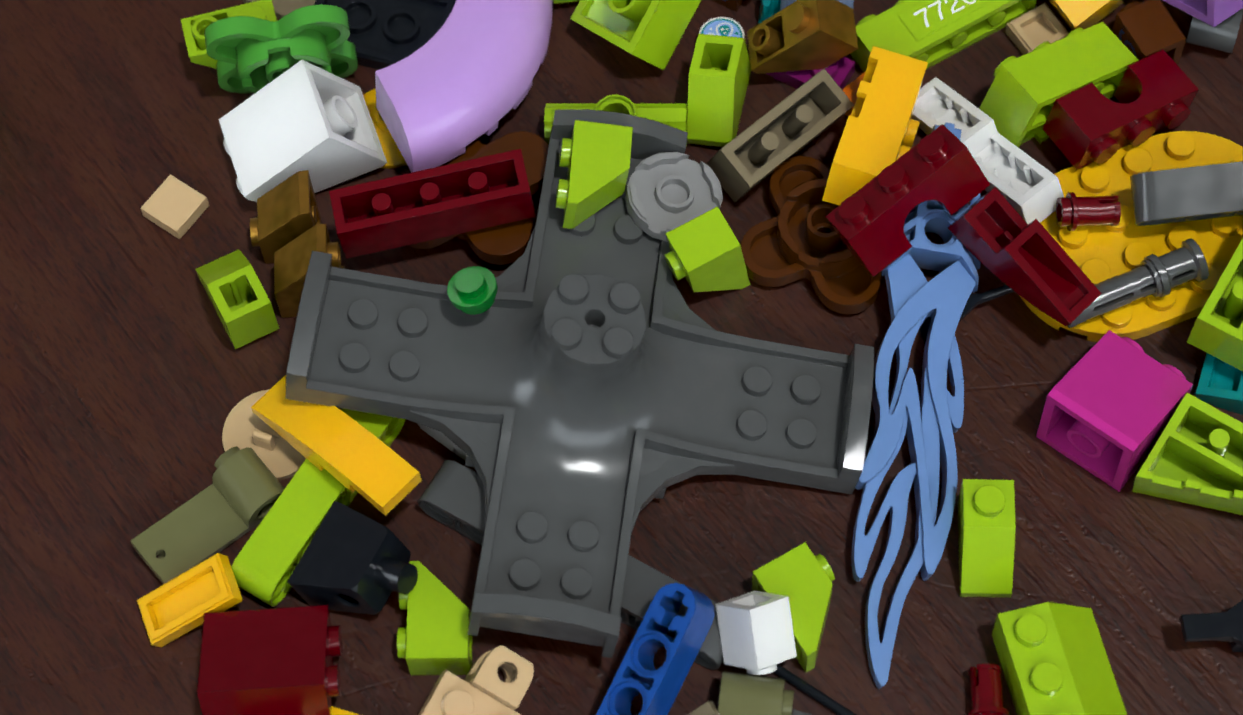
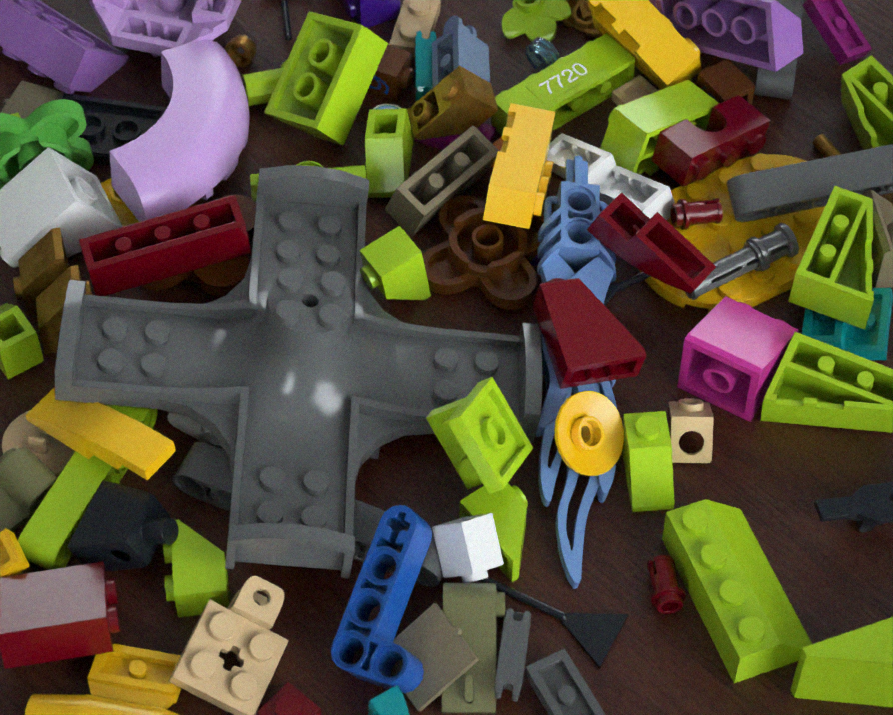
camera: 10 degrees left, 10 degrees down
(472, 290) = (205, 299): green plate -> none
(597, 169) = (297, 209): lime slope -> none
(670, 192) = (357, 223): light grey tile -> none
(788, 497) = (481, 437): none -> lime bracket
(875, 215) = (527, 223): dark red arch -> none
(926, 371) = (584, 336): none -> dark red slope
(932, 503) = (601, 432): none -> yellow dish
(1045, 483) = (686, 416): none -> tan bracket

